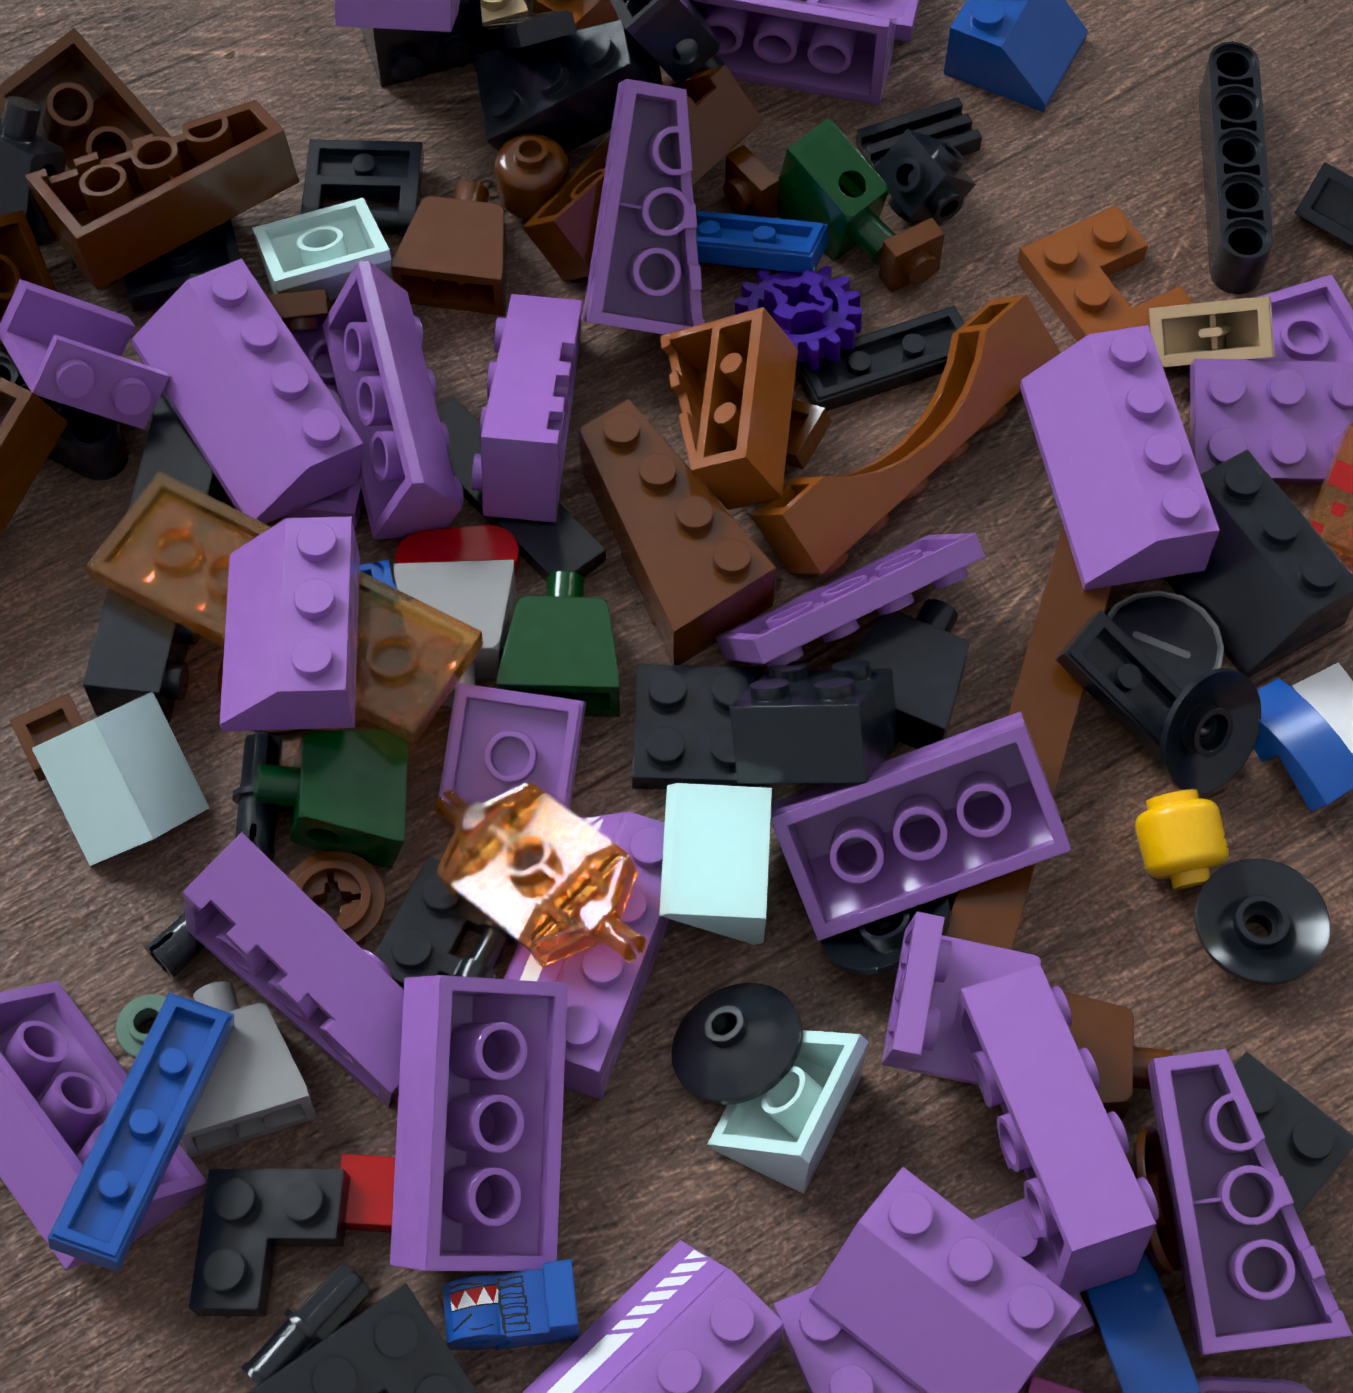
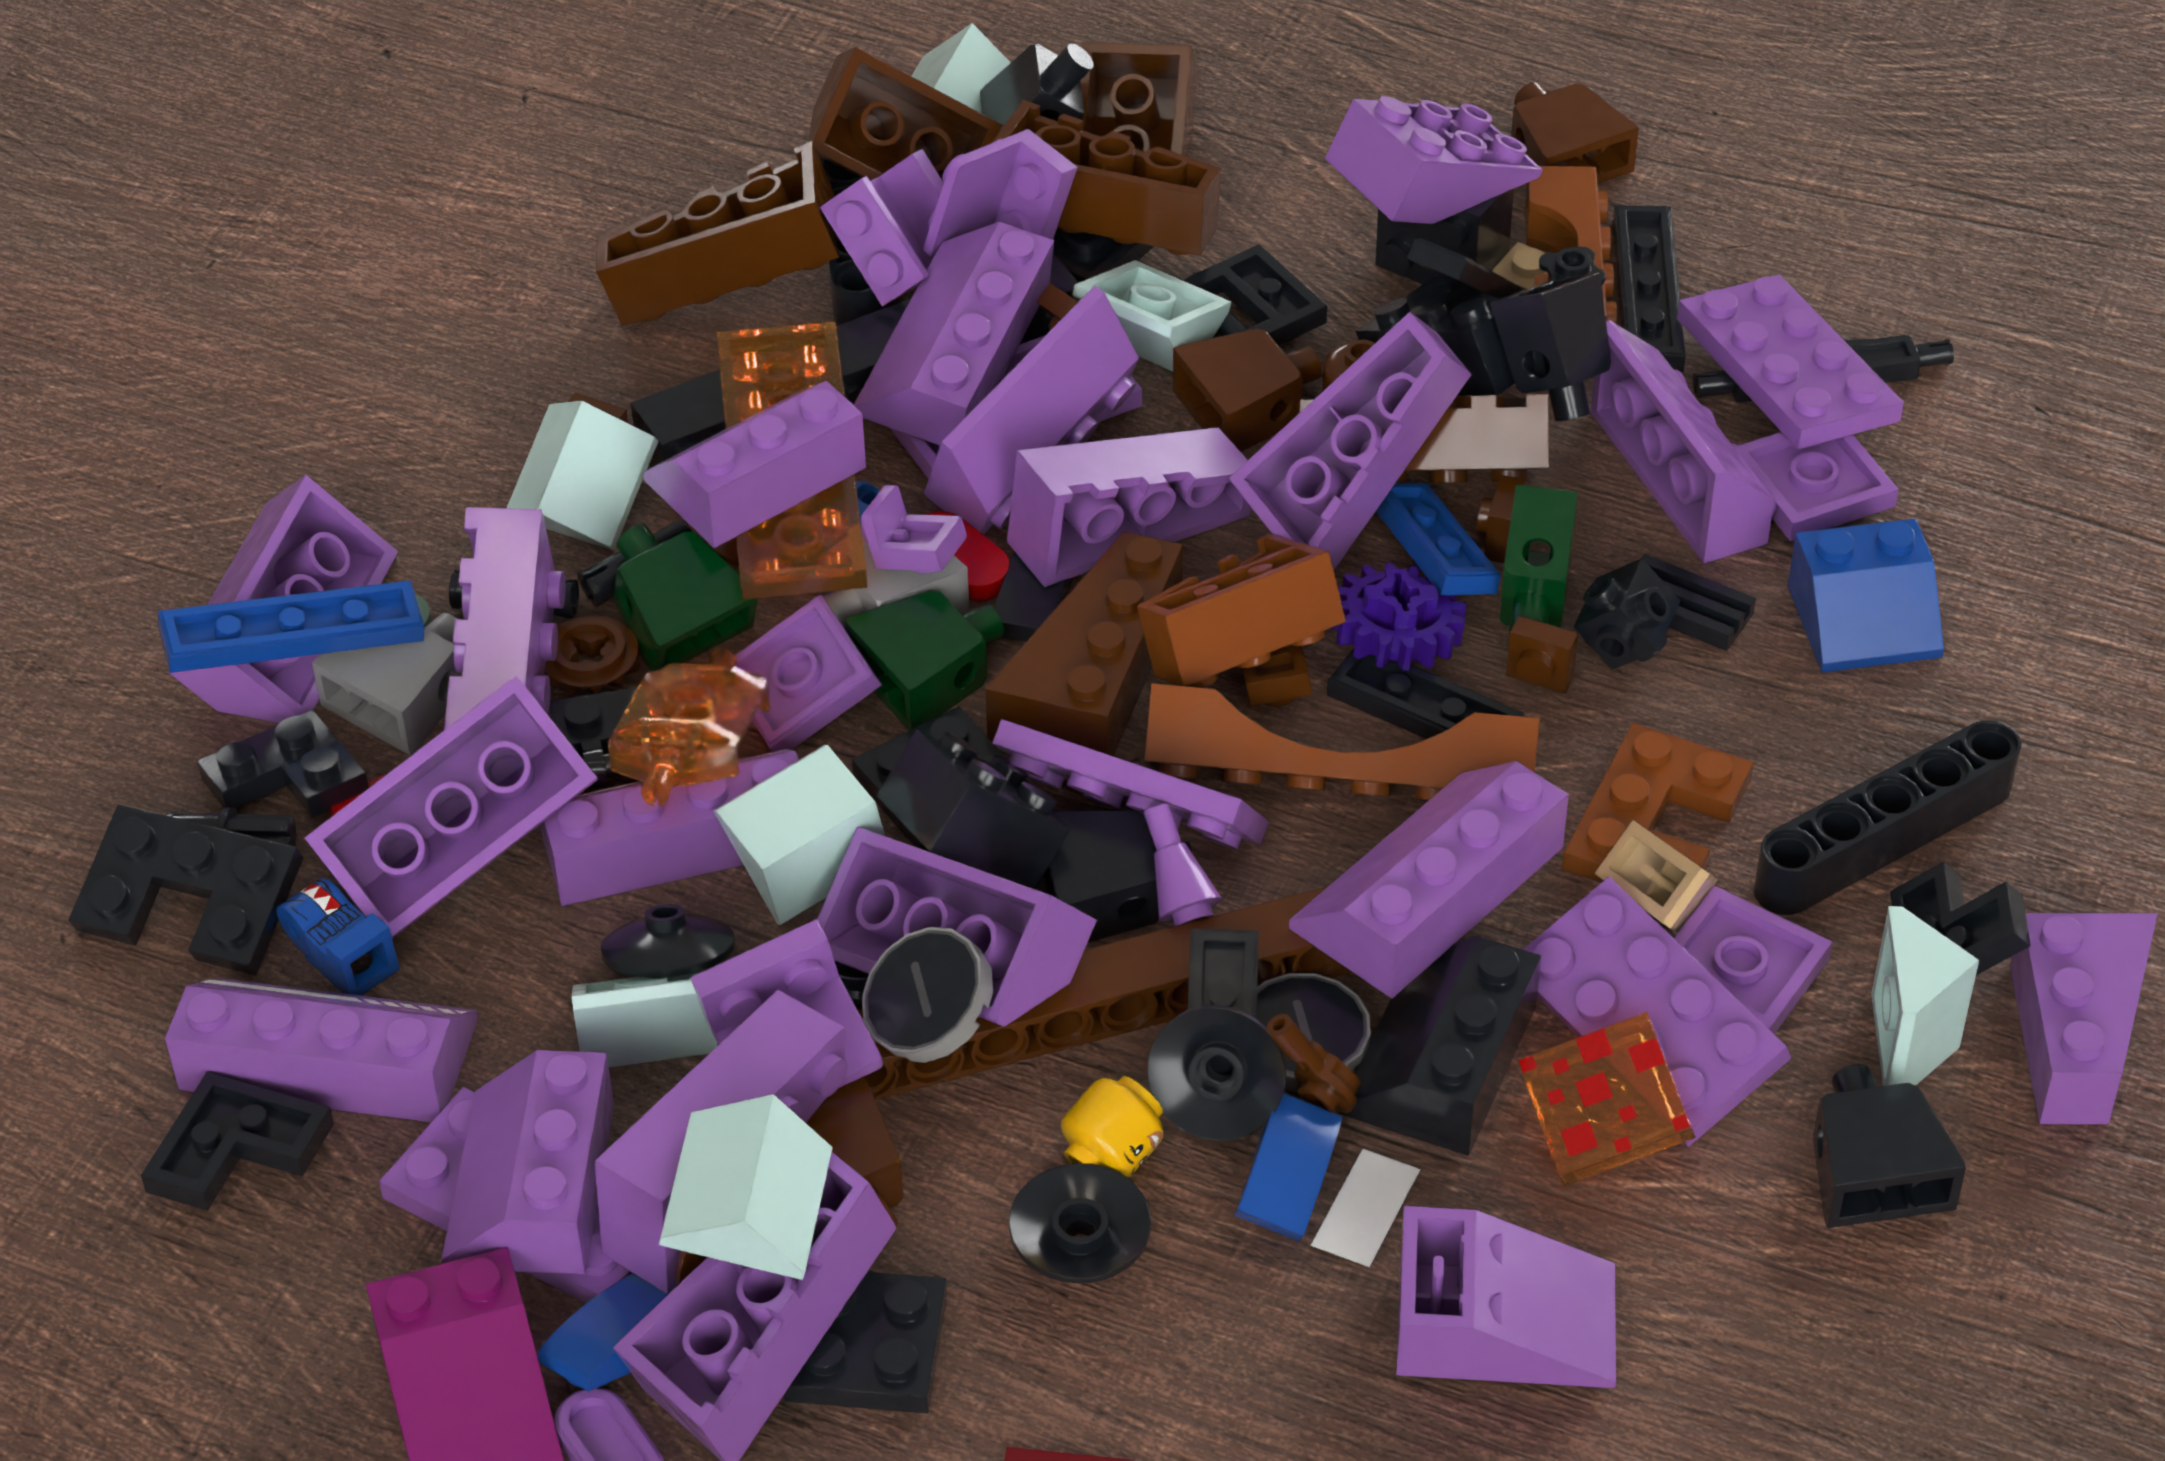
camera: 55 degrees right, 15 degrees down
(140, 253) = (1006, 182): none -> medium lavender bracket
(468, 576) = (906, 539): none -> medium lavender bracket
(993, 632) = (1181, 883): none -> medium lavender cone
(1002, 881) = (927, 994): none -> black tile
(1185, 1154) = (748, 1187): none -> light aqua slope
(1251, 660) = (1321, 1074): none -> reddish brown plate

